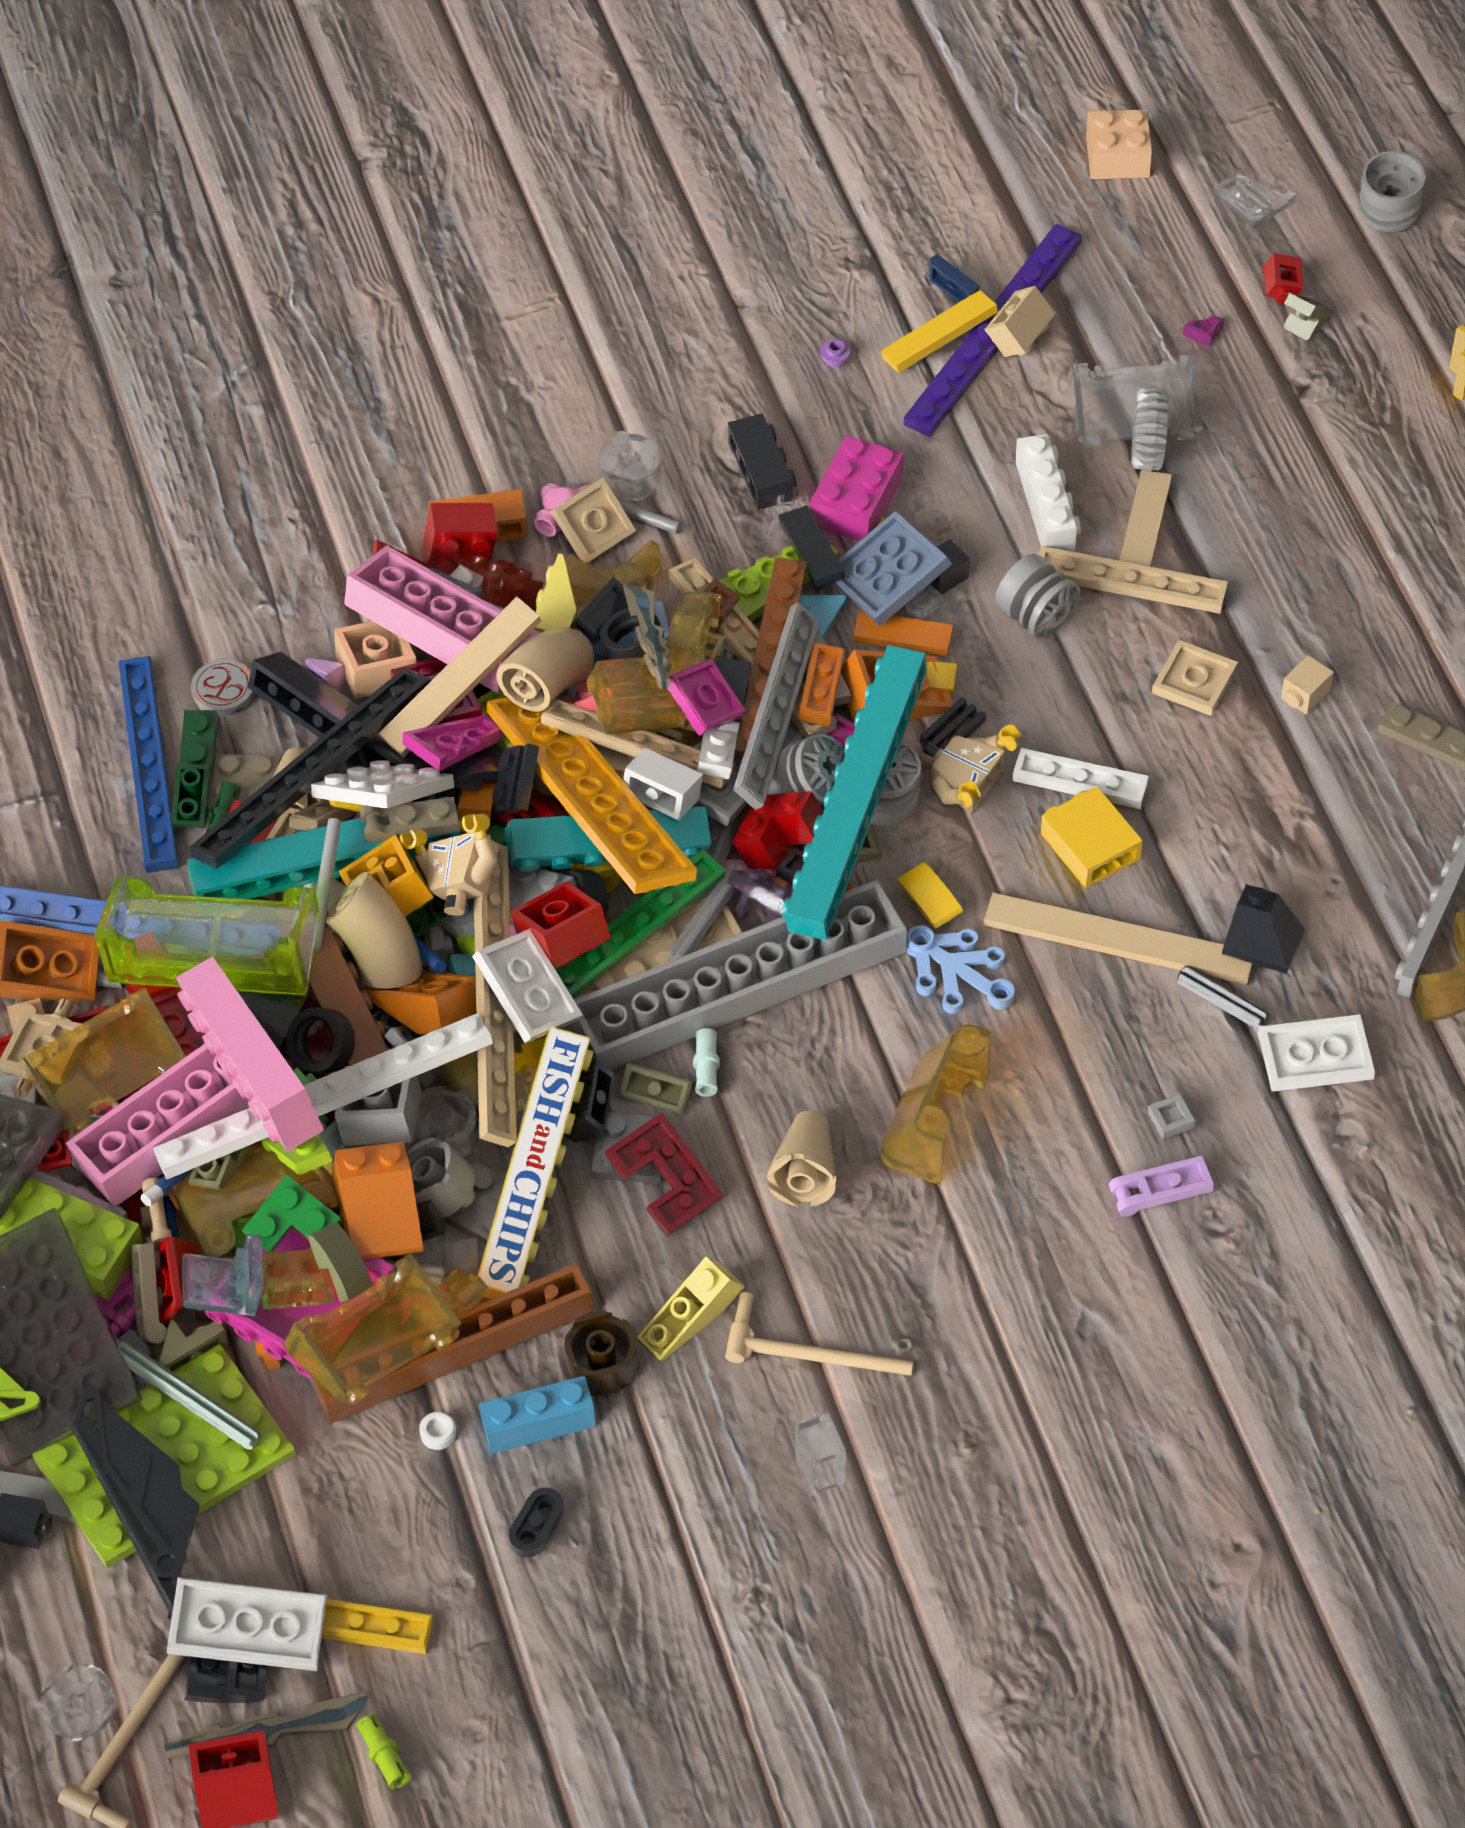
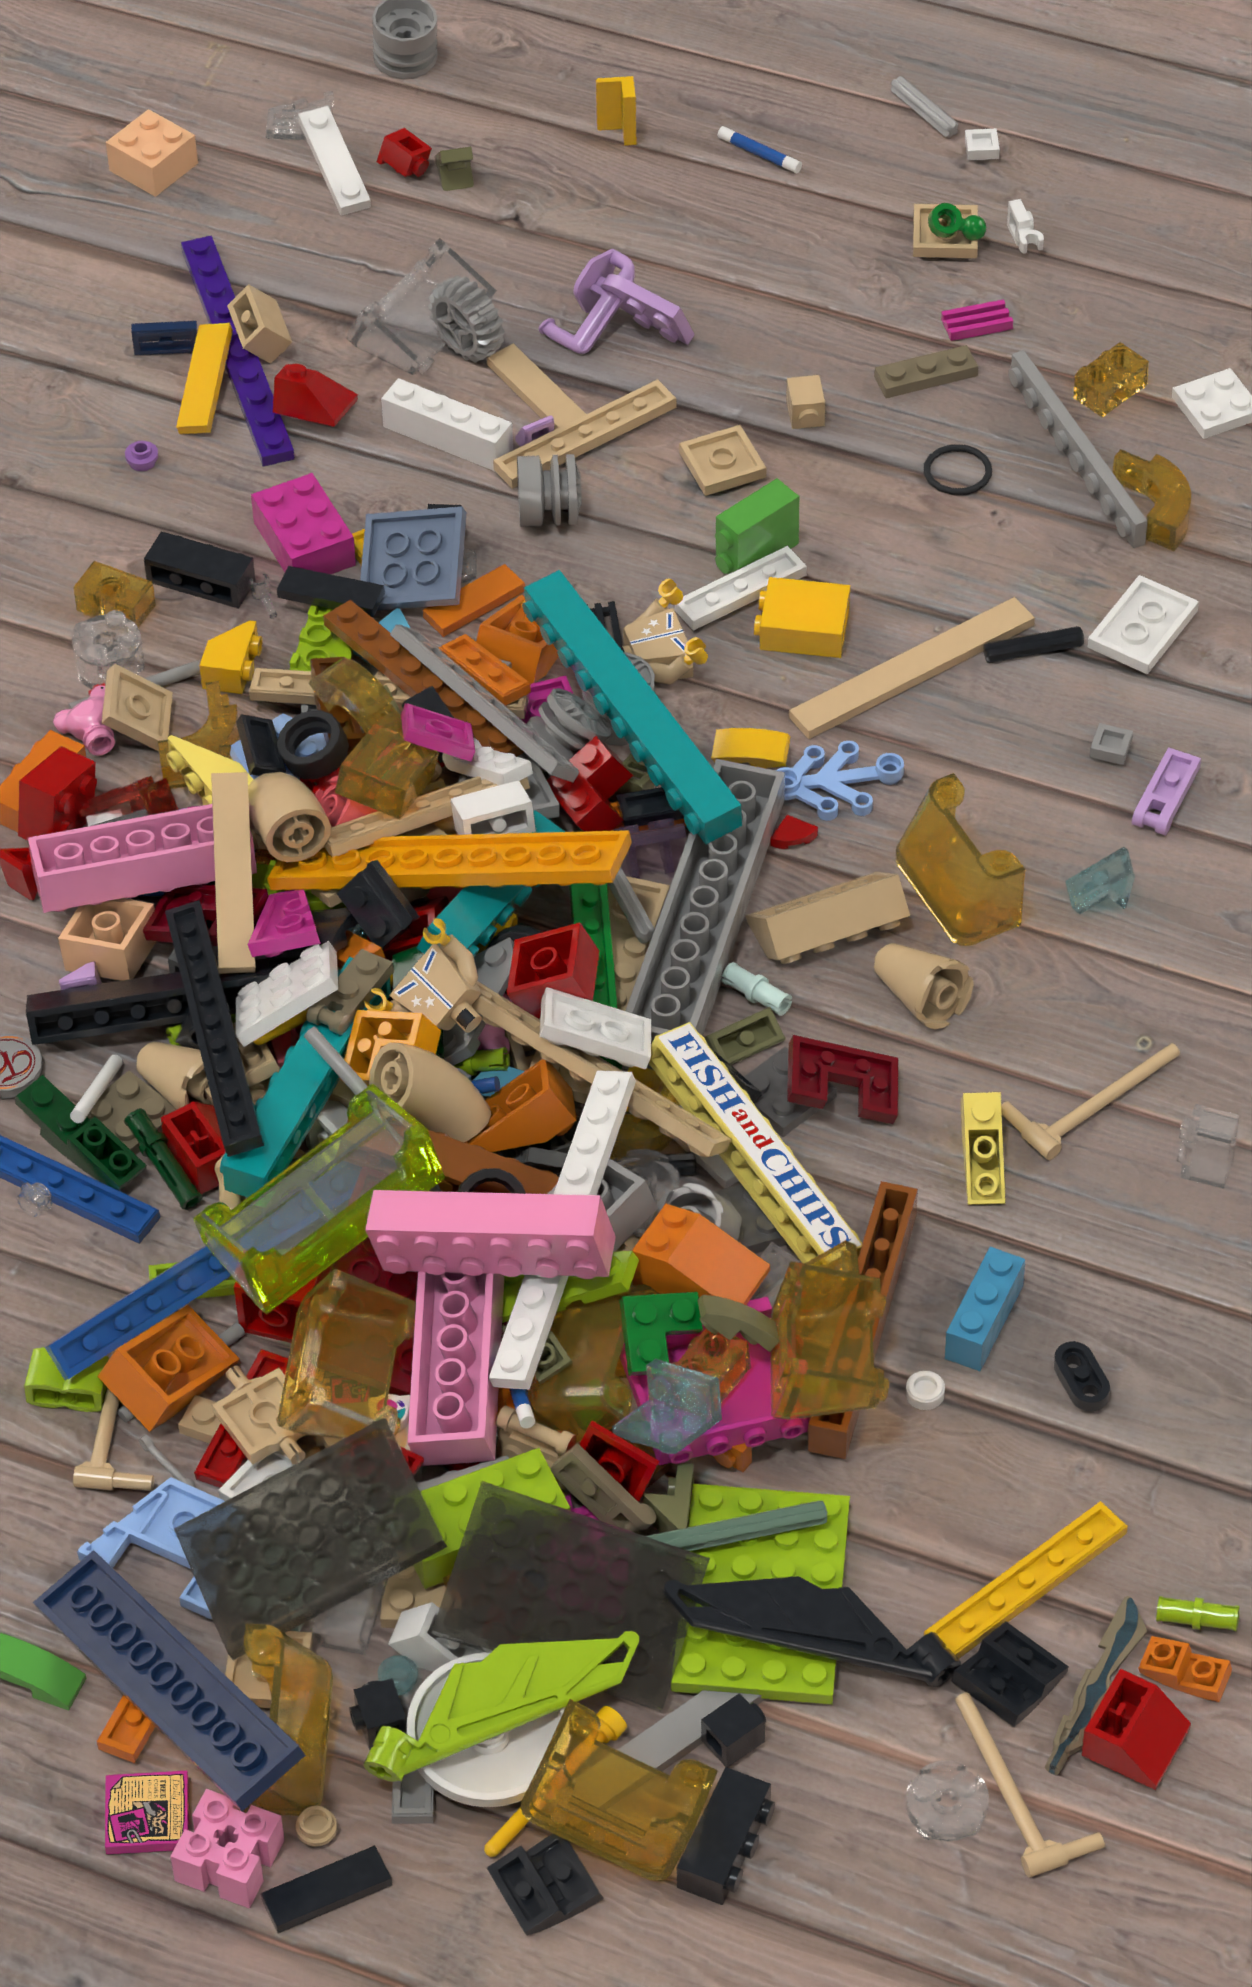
camera: 50 degrees left, 5 degrees down
(240, 749) = (96, 1089): none -> white bar
(247, 1624) = (996, 1627): white tile -> none
(328, 1778) = (1177, 1667): none -> orange slope
(602, 1351) = (969, 1224): dark brown brick -> none
(650, 636) = (343, 721): dark tan sword -> none
(685, 434) = (110, 589): none -> clear yellow brick
(698, 537) = (231, 658): none -> yellow slope
(816, 1057) = (829, 916): none -> tan slope
(879, 979) = (793, 832): none -> red tile
(983, 400) = (310, 396): none -> red slope
(1020, 1205) = (1105, 879): none -> clear light blue slope
(1098, 548) = (534, 430): none -> lavender slope
(1134, 743) = (757, 526): none -> bright green brick
(1204, 330) = (392, 233): magenta tile -> none
(1230, 245) = (334, 160): none -> white plate
(1263, 930) = (1002, 577): black slope -> none
(1273, 483) = (602, 294): none -> lavender plate
(1345, 850) = (957, 491): none -> black piece

